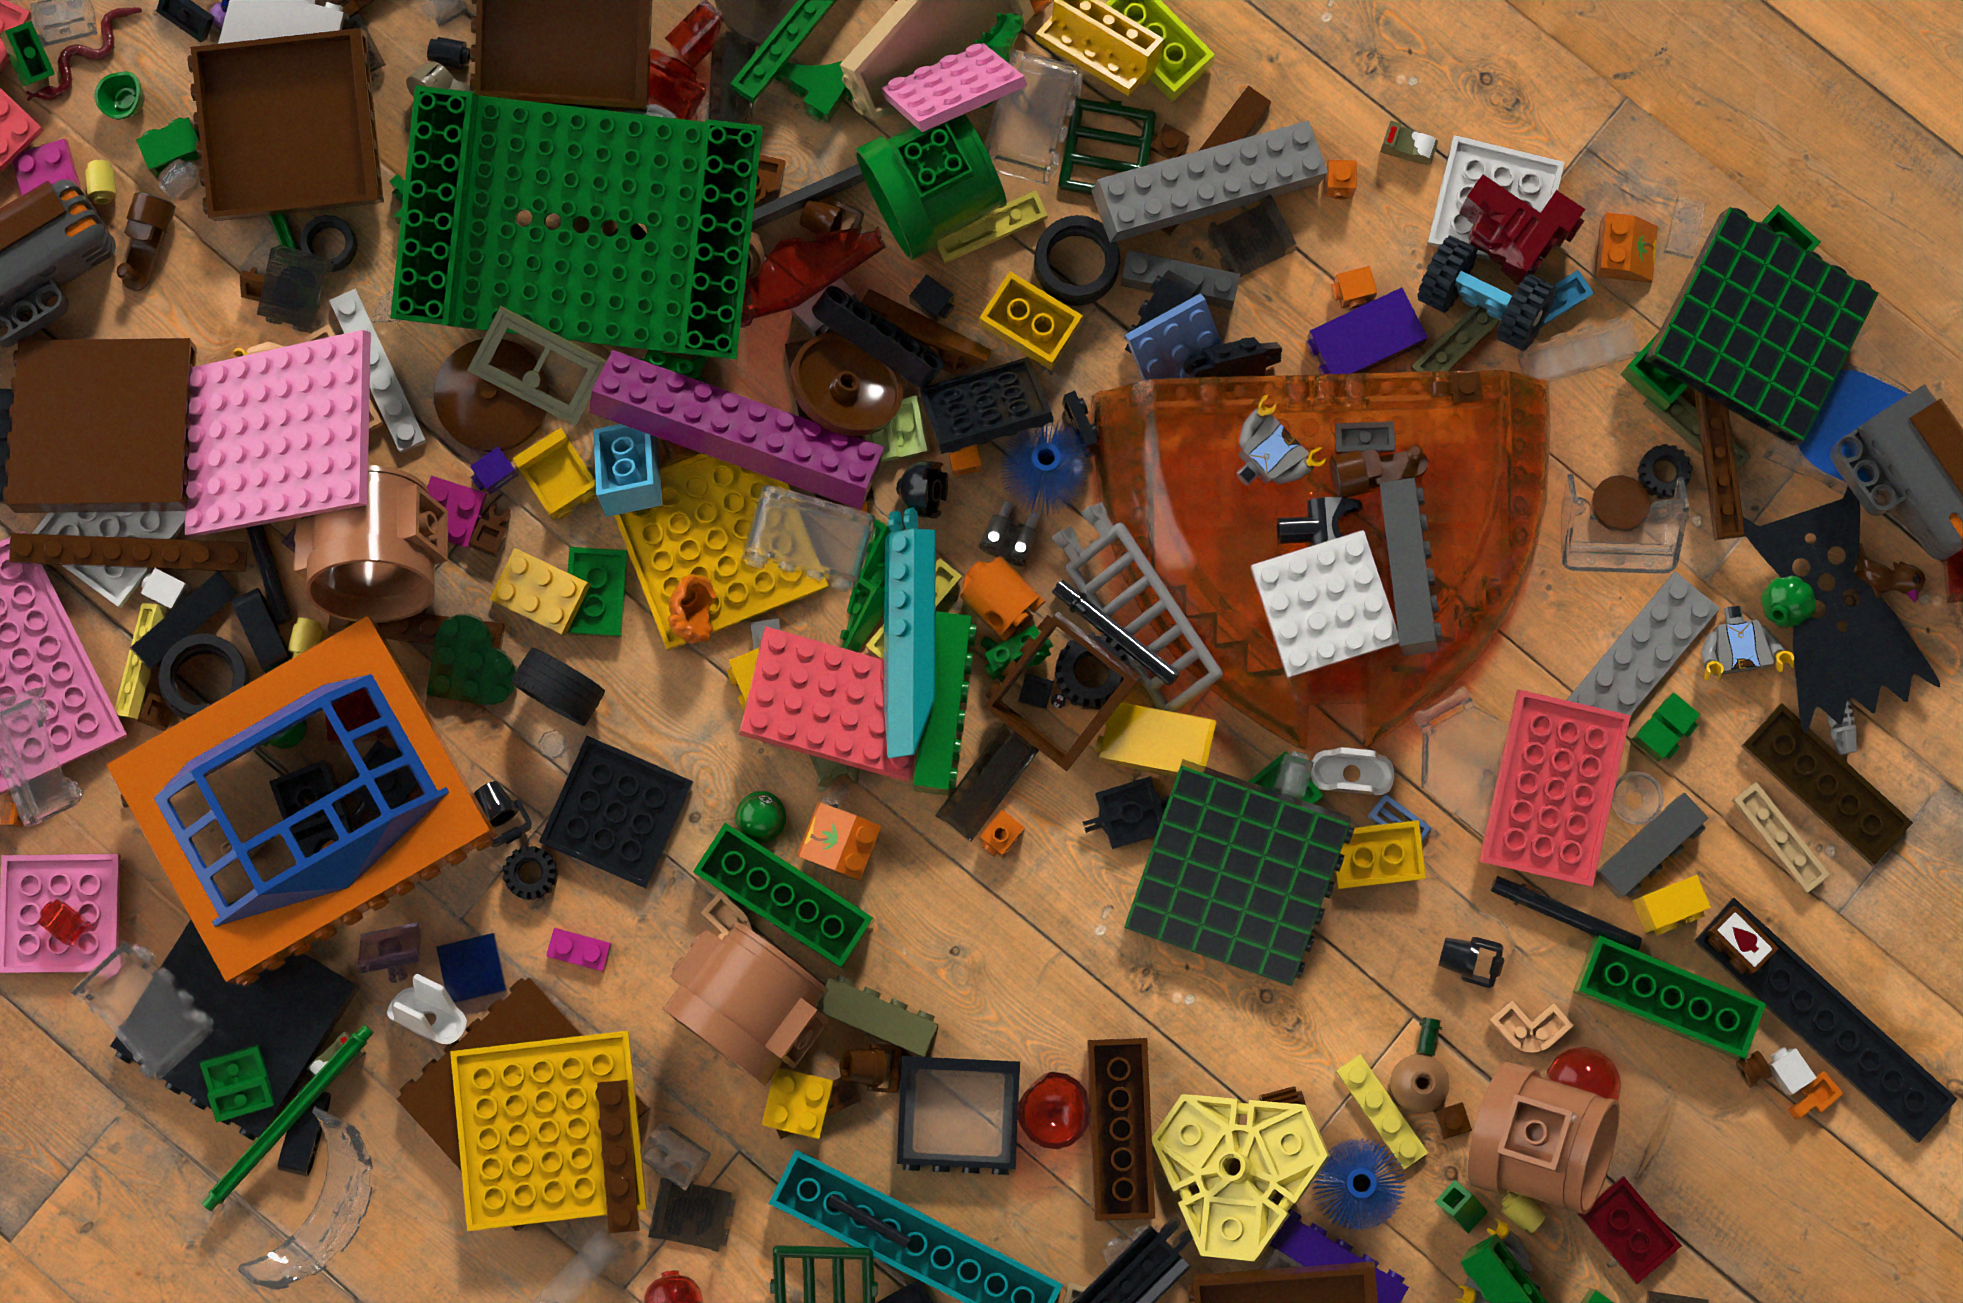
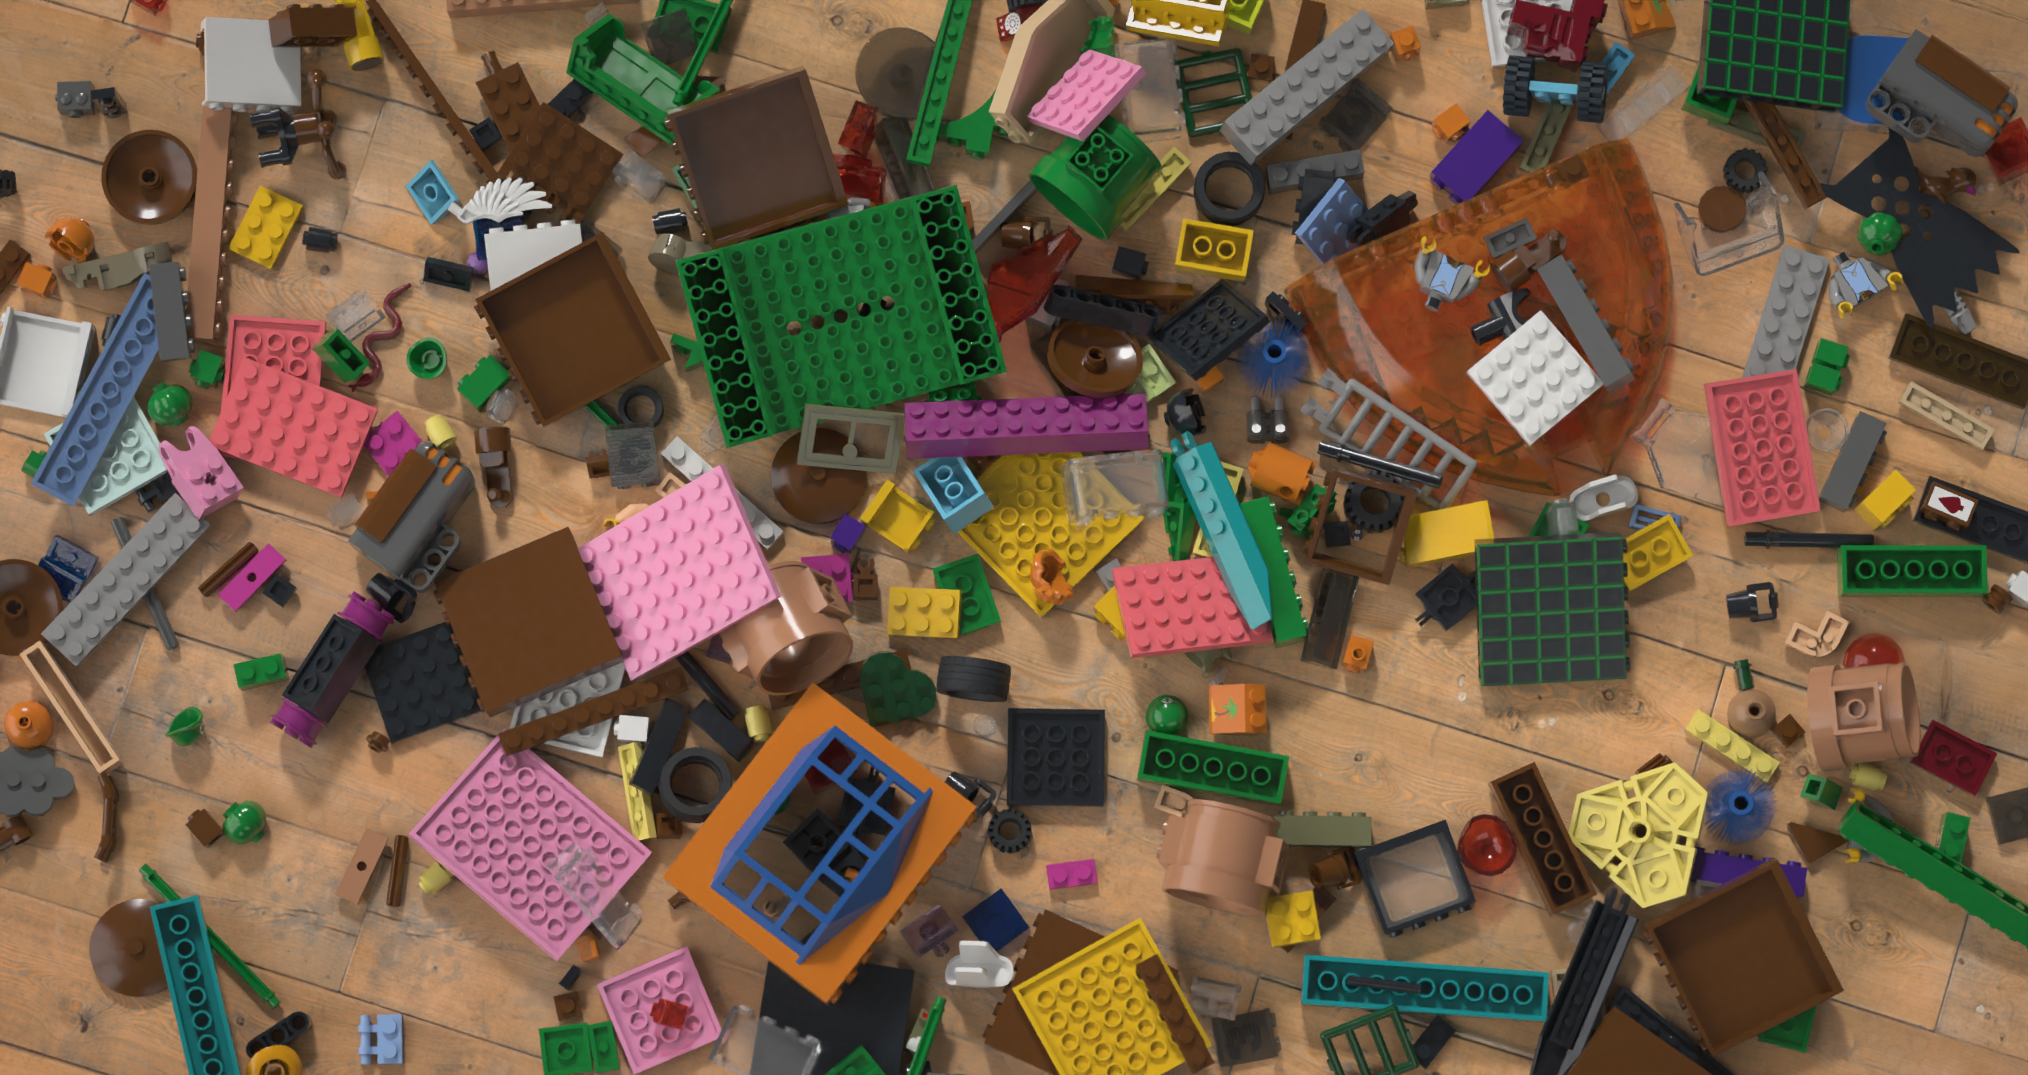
camera: 25 degrees left, 0 degrees up
(1430, 1260) = (1815, 842): none -> reddish brown tile

